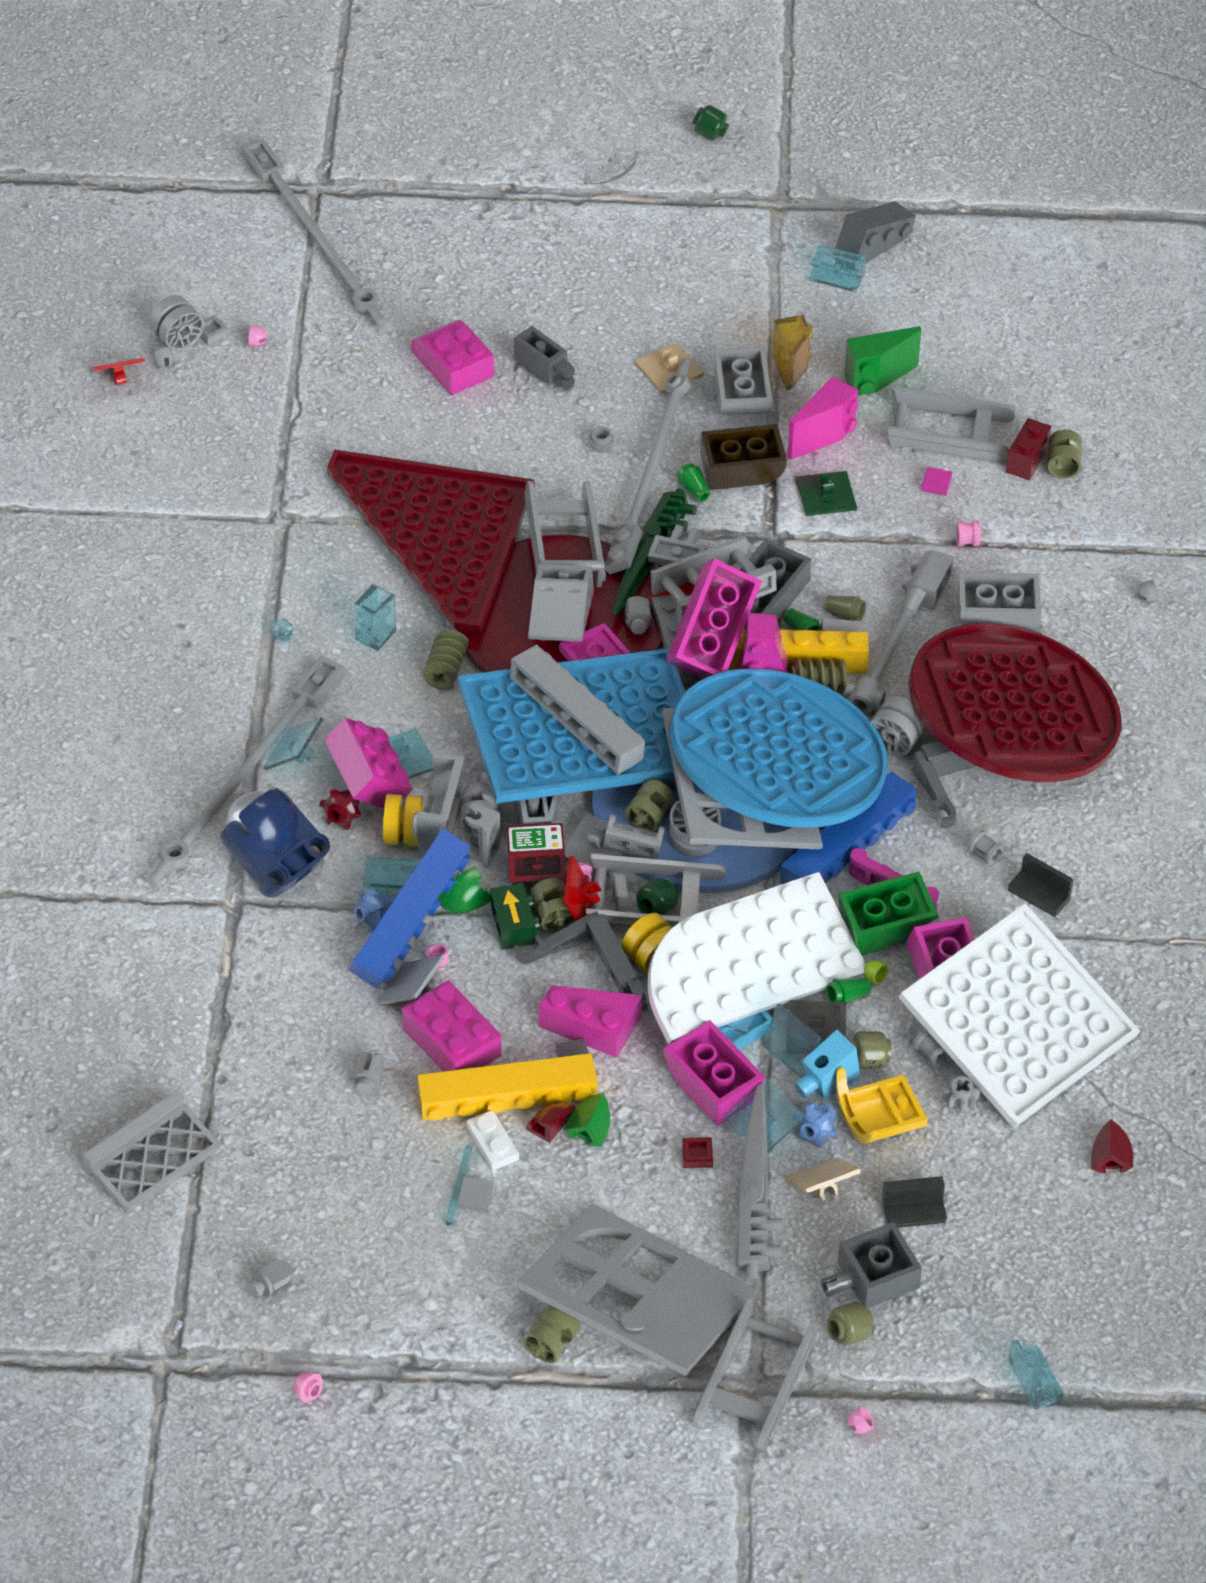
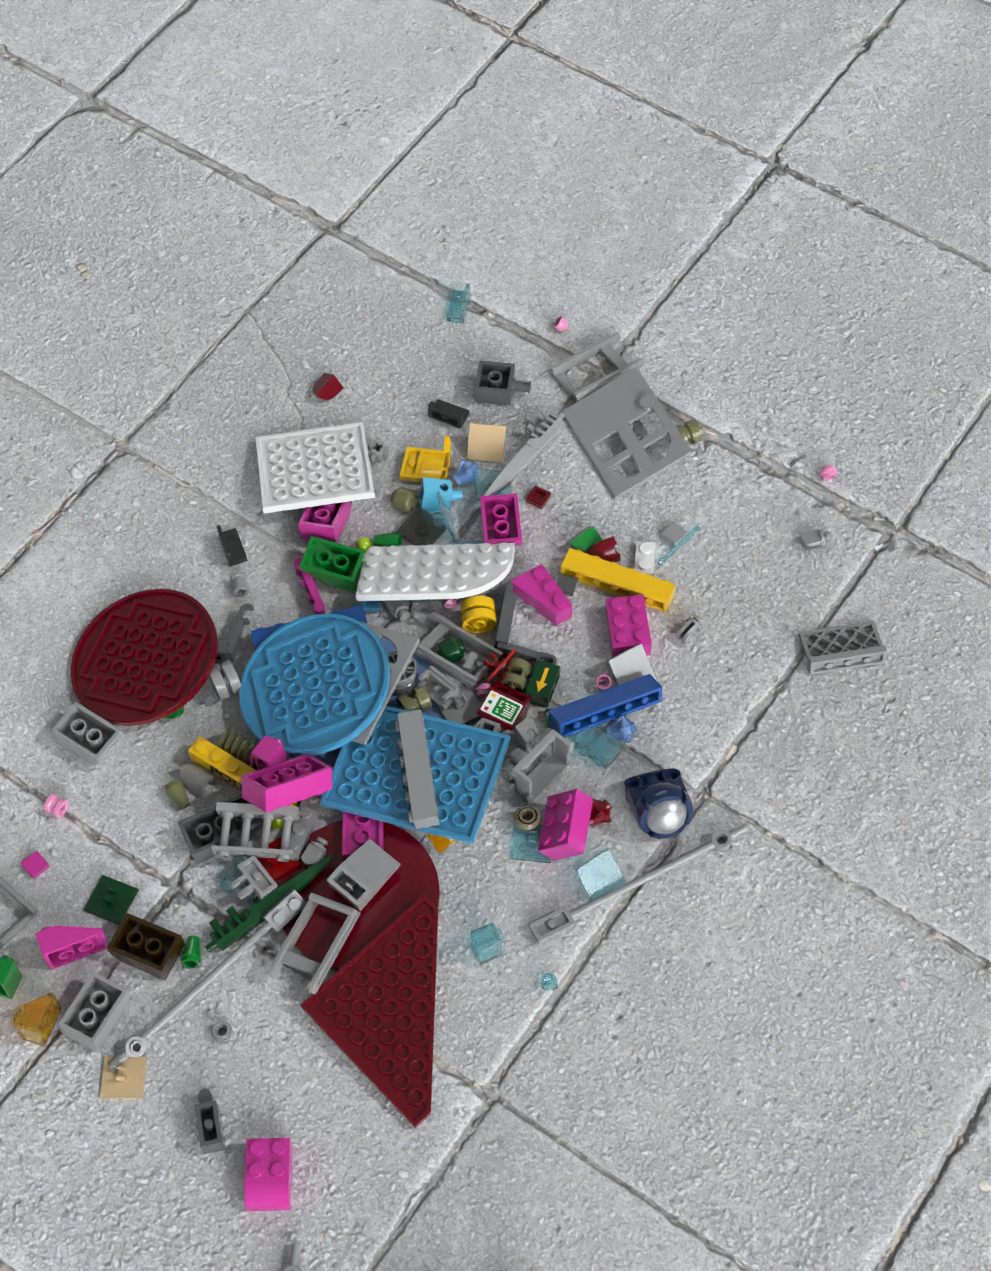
camera: 145 degrees left, 10 degrees up
(399, 819) = (567, 775): yellow wheel -> none
(419, 757) = (527, 817): none -> dark tan cone
(445, 659) = (457, 891): olive piece -> none
(799, 621) = (215, 792): green cone -> none
(850, 1323) = (530, 367): olive head -> none
(921, 590) = (120, 779): light grey bar -> none

